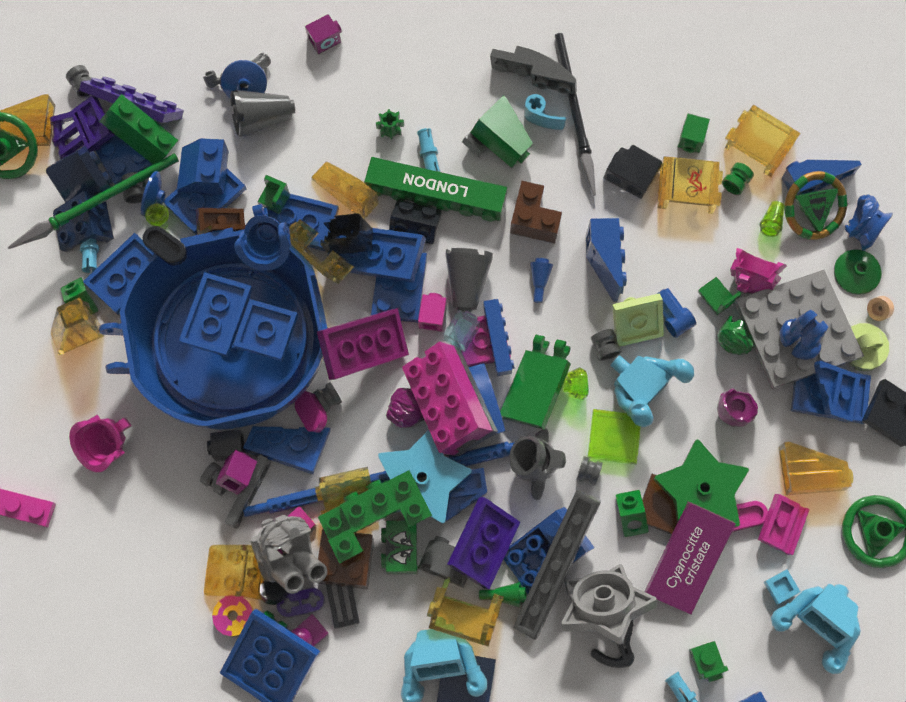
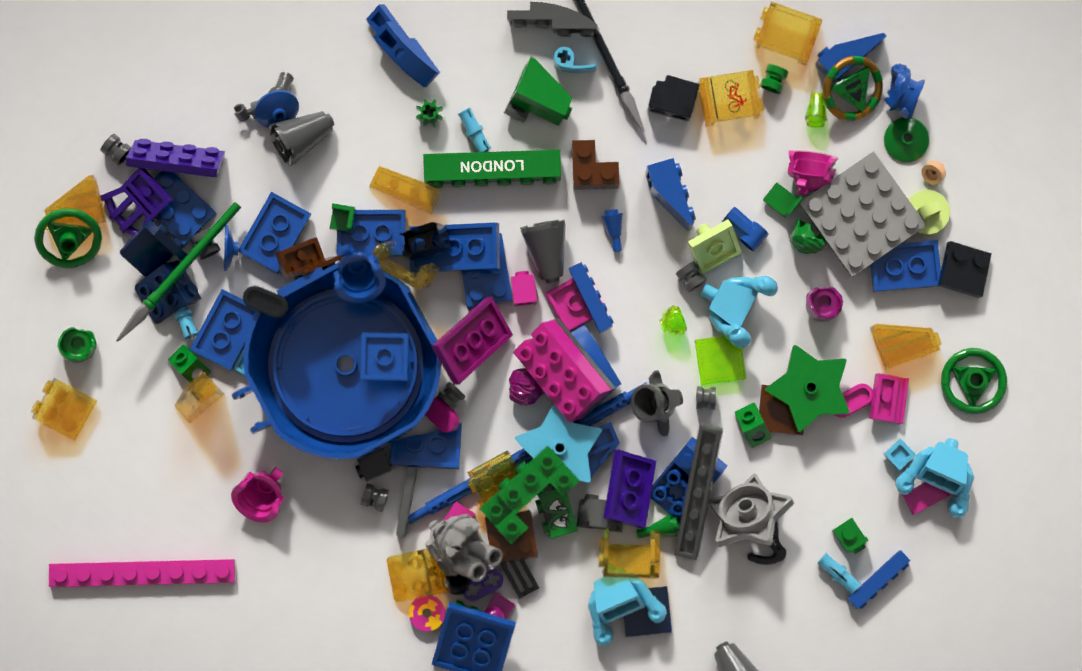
camera: 20 degrees left, 10 degrees up
(138, 130) = (195, 190): green brick -> none
(157, 215) = (240, 261): clear neon green cone -> none
(203, 167) = (266, 208): blue slope -> none
(215, 314) = (334, 354): blue plate -> none
(236, 472) = (393, 488): magenta brick -> none
(323, 33) = (337, 35): magenta brick -> none
(380, 58) = (400, 48): none -> blue slope
(415, 219) = (481, 204): black bracket -> none
(462, 330) = (556, 300): clear light blue brick -> none
(537, 384) = (638, 331): green tile -> none
(689, 557) = (812, 452): magenta tile -> none
(693, 133) = (721, 44): green brick -> none
(799, 640) = (923, 497): none -> dark pink tile
(810, 332) = (865, 221): blue piece -> none
(837, 390) = (909, 265): blue wing -> none

